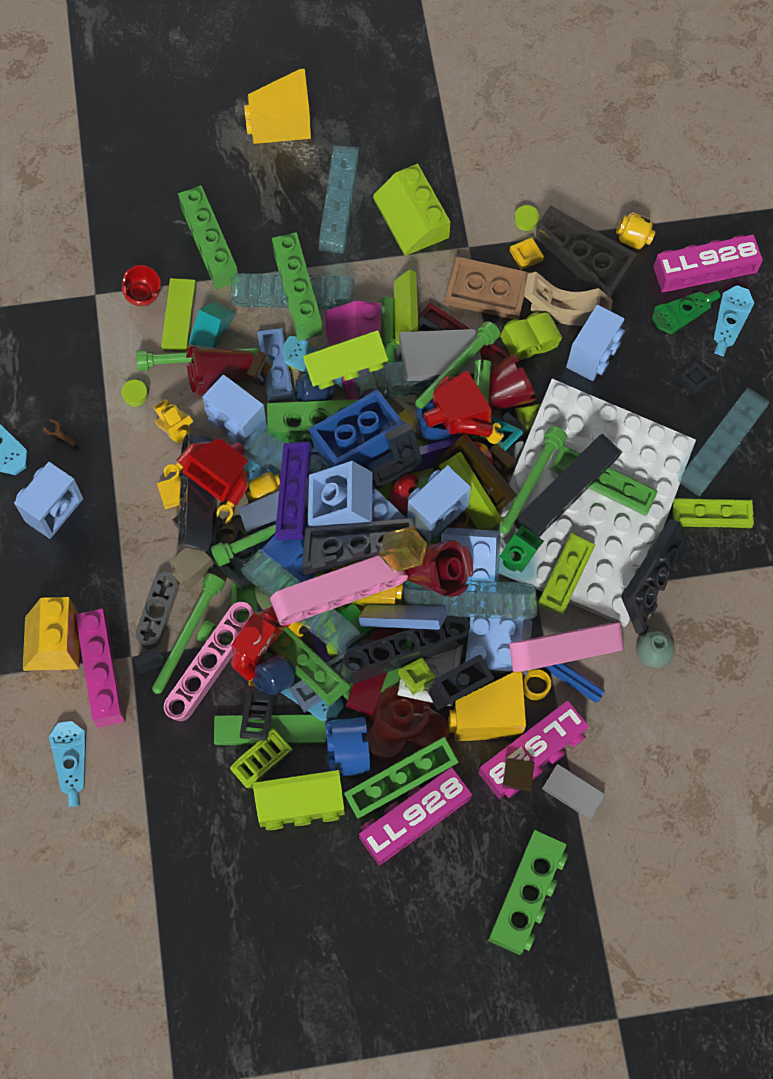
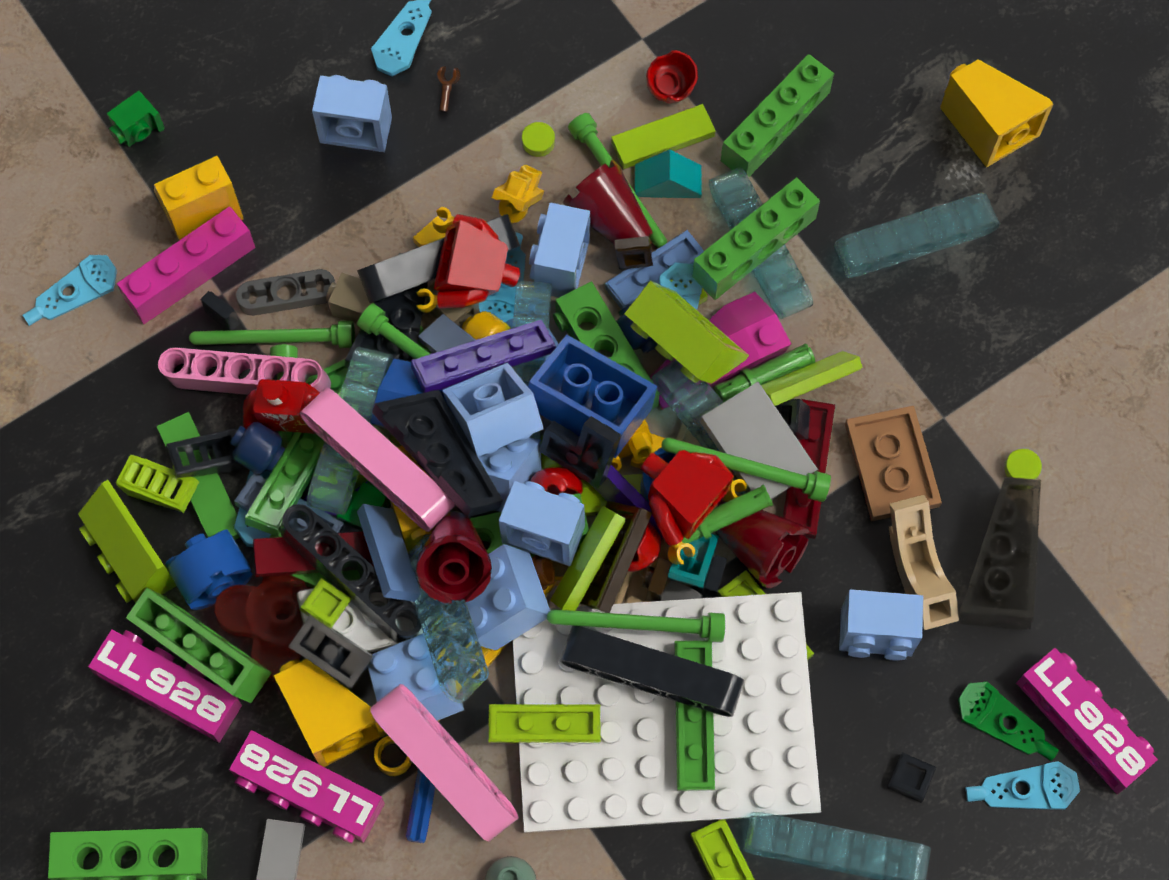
camera: 65 degrees right, 0 degrees up
(403, 549) = (448, 502): clear yellow panel -> none
(412, 210) = (949, 326): lime slope -> none
(518, 774) = (258, 777): dark brown tile -> none
(526, 253) = (972, 489): yellow tile -> none
(526, 544) = (530, 649): green brick -> none
(531, 335) = (853, 543): lime brick -> none
(635, 230) = (1079, 607): yellow head -> none
(652, 576) = (584, 830): black wing -> none

